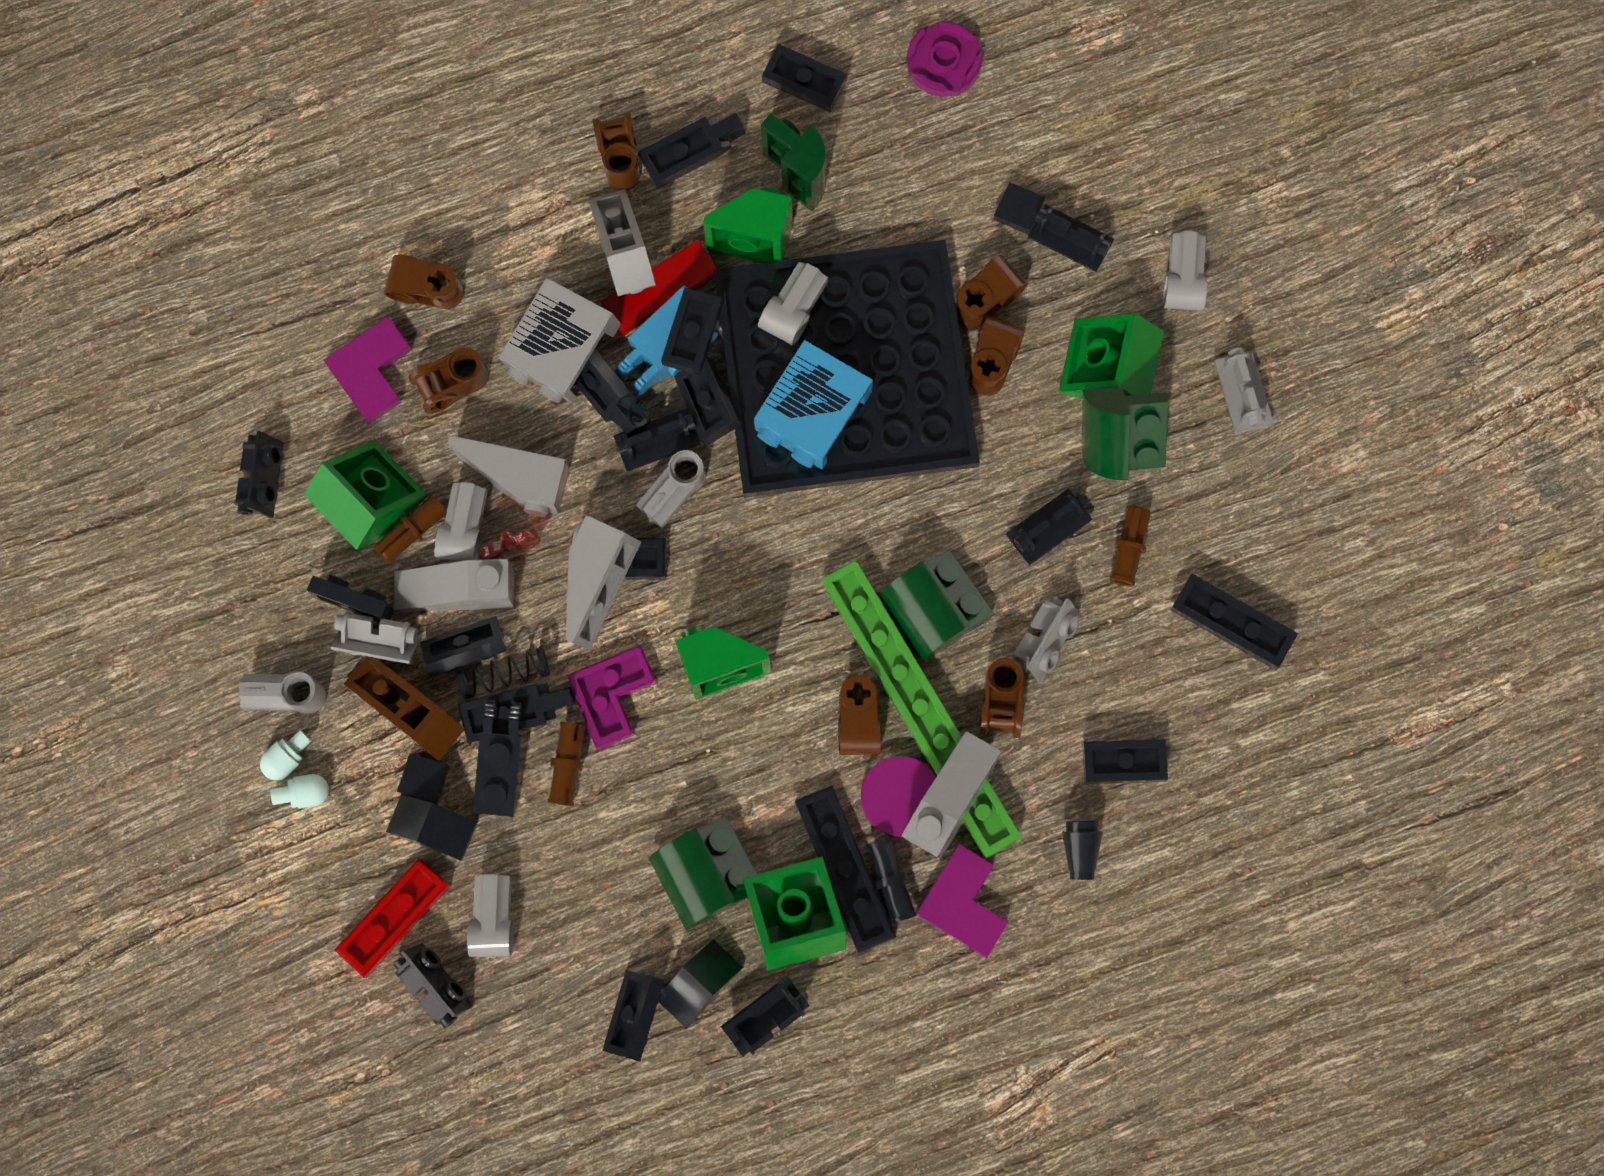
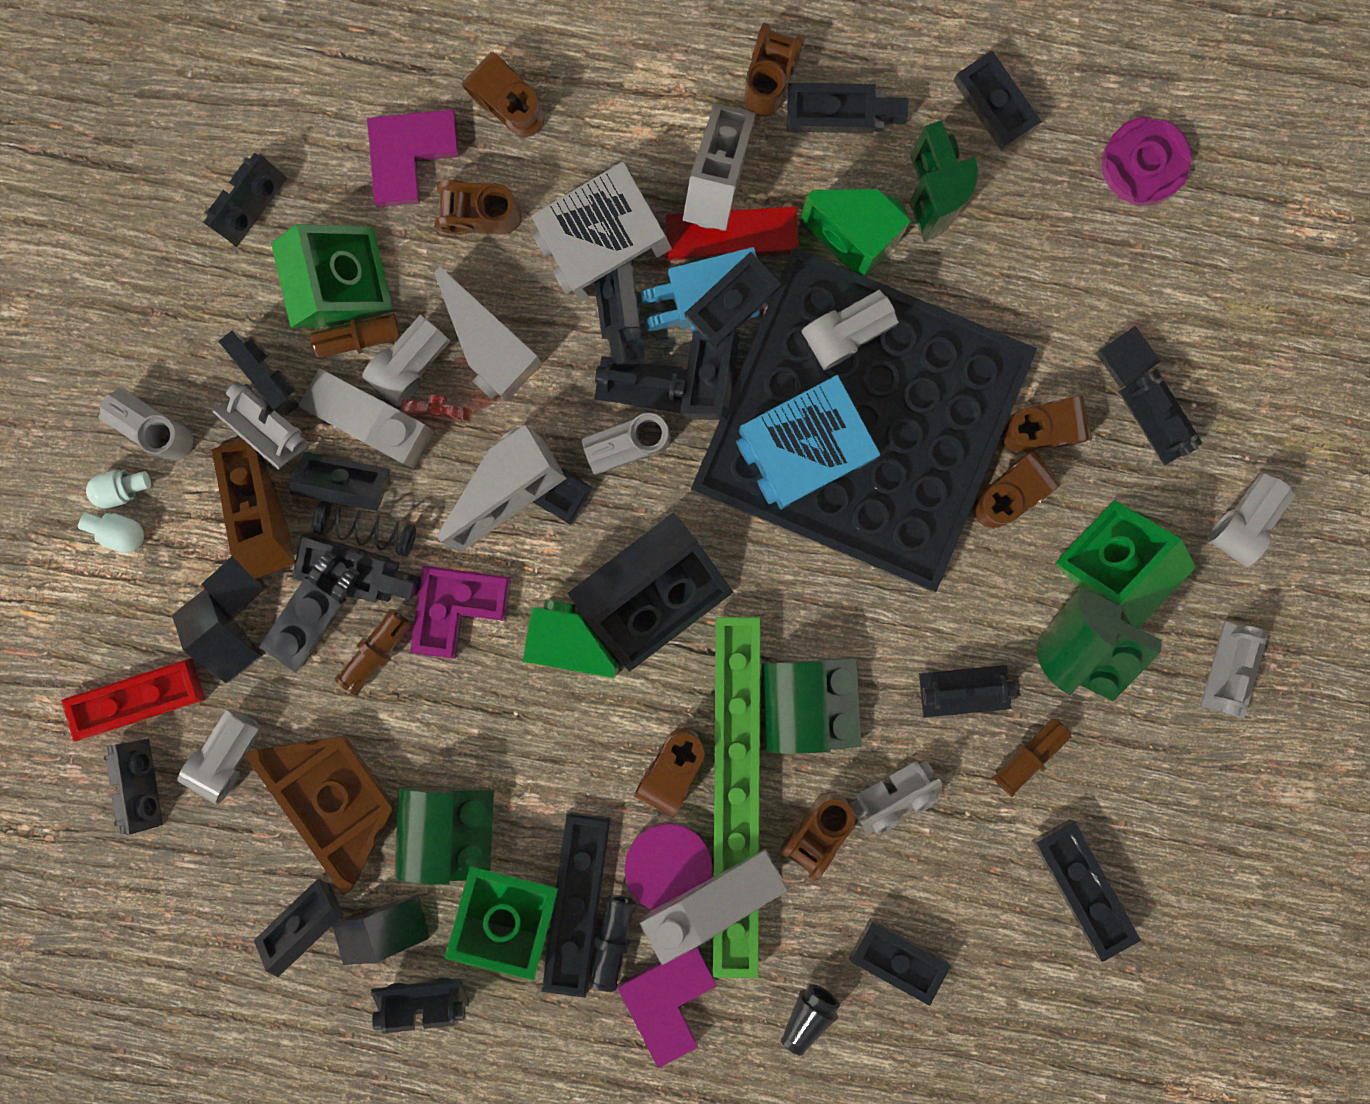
camera: 30 degrees right, 10 degrees up
(599, 901) = (328, 800): none -> reddish brown wing
(761, 586) = (650, 592): none -> black slope

